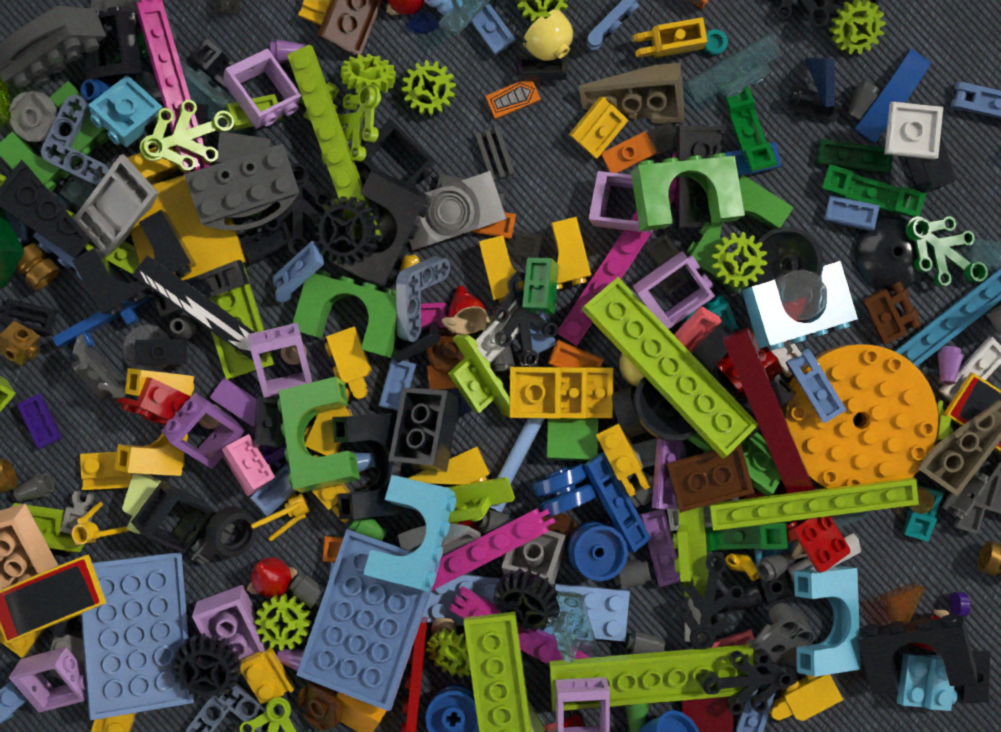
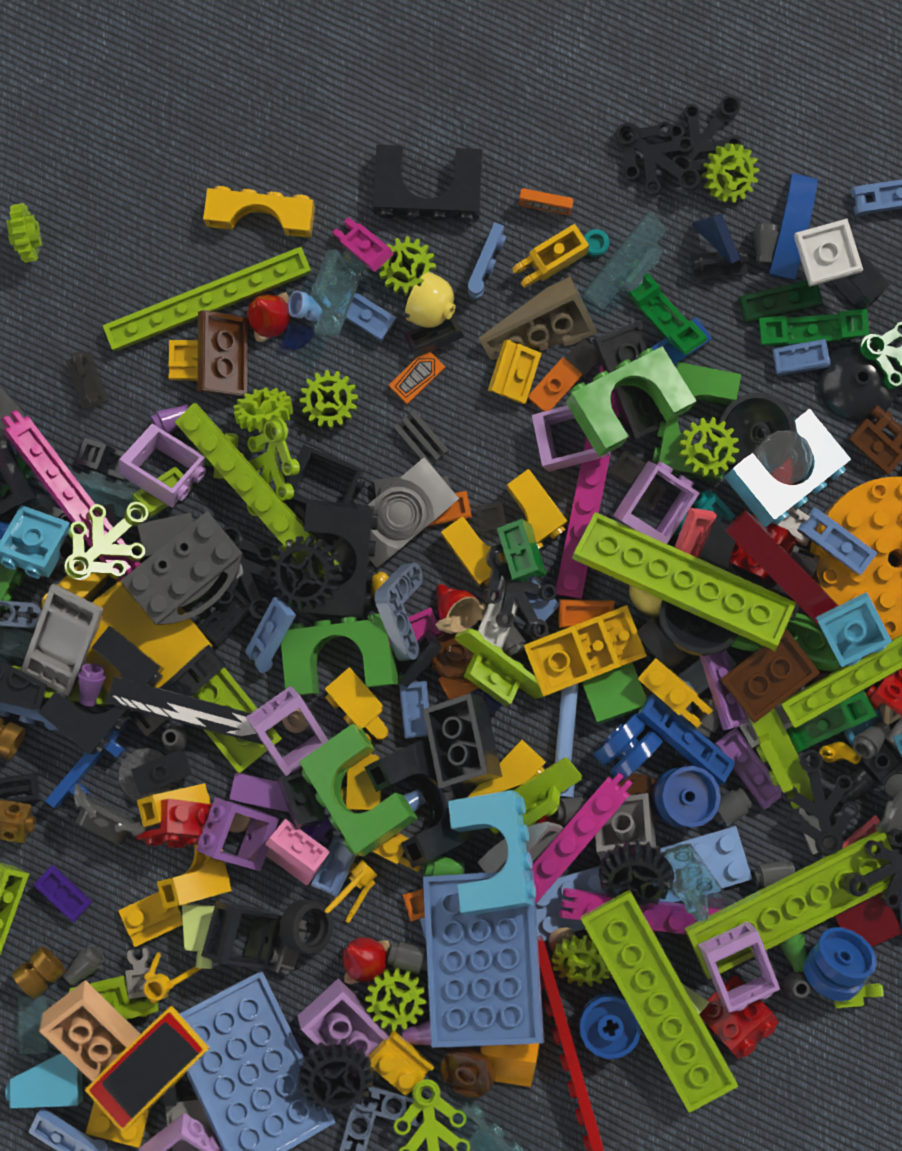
camera: 20 degrees left, 5 degrees down
(128, 251) = (90, 683): none -> medium lavender cone
(798, 468) = (854, 630): none -> medium azure plate

